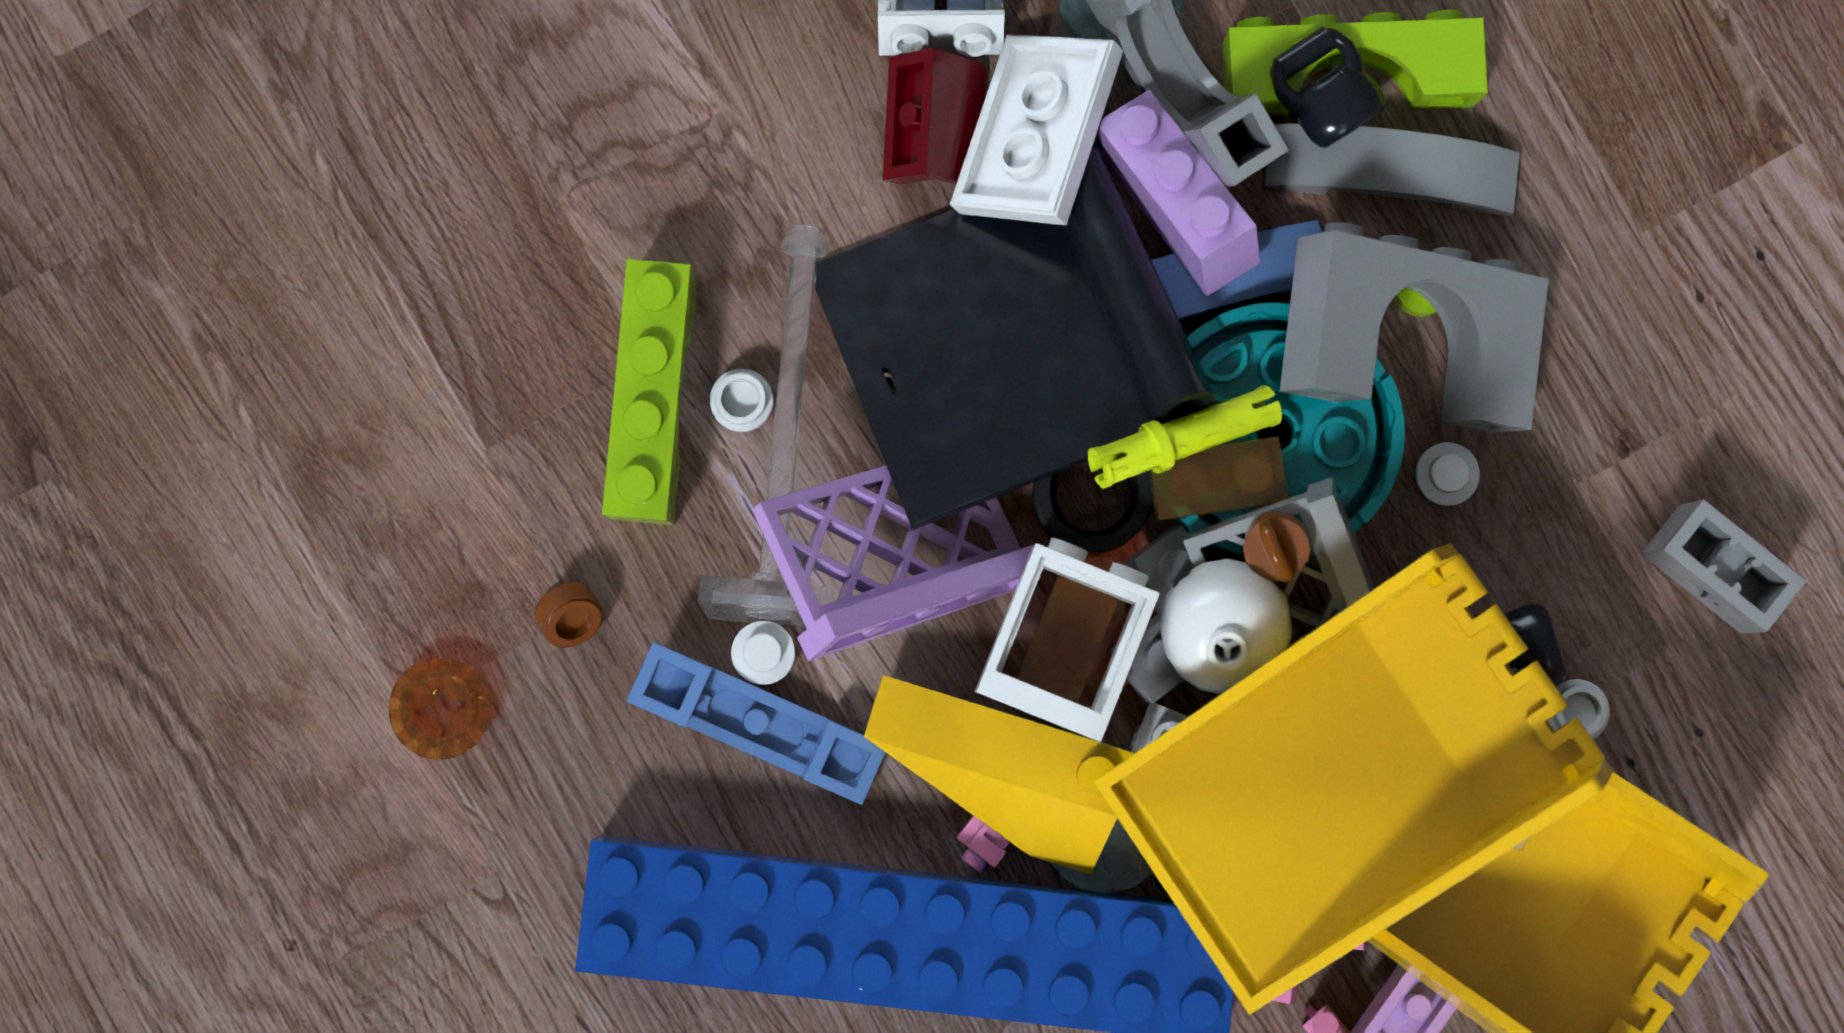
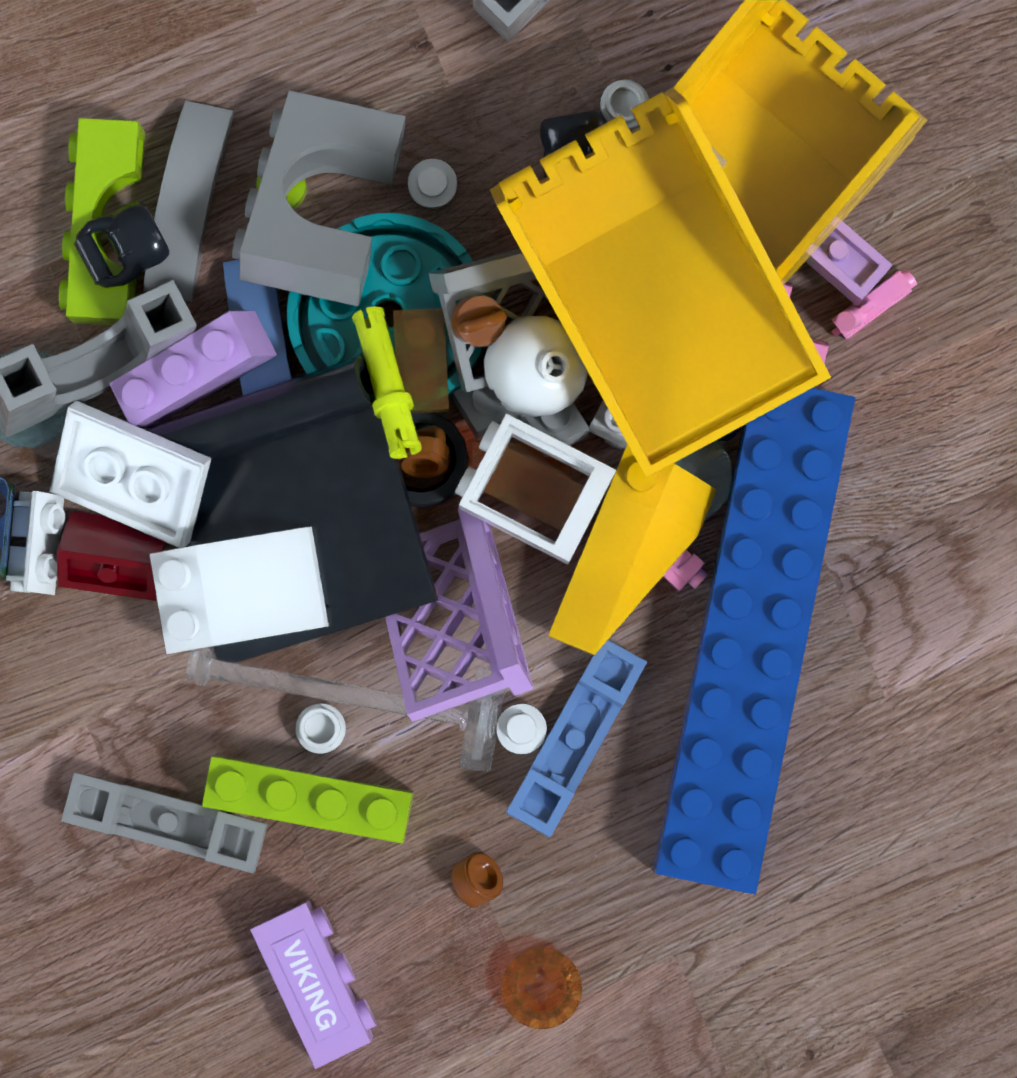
camera: 85 degrees left, 0 degrees up
(422, 422) = (314, 983): none -> lavender brick
(608, 216) = (164, 821): none -> light grey slope
(903, 278) = (239, 590): none -> white slope
(1099, 506) = (432, 458): none -> dark orange tile

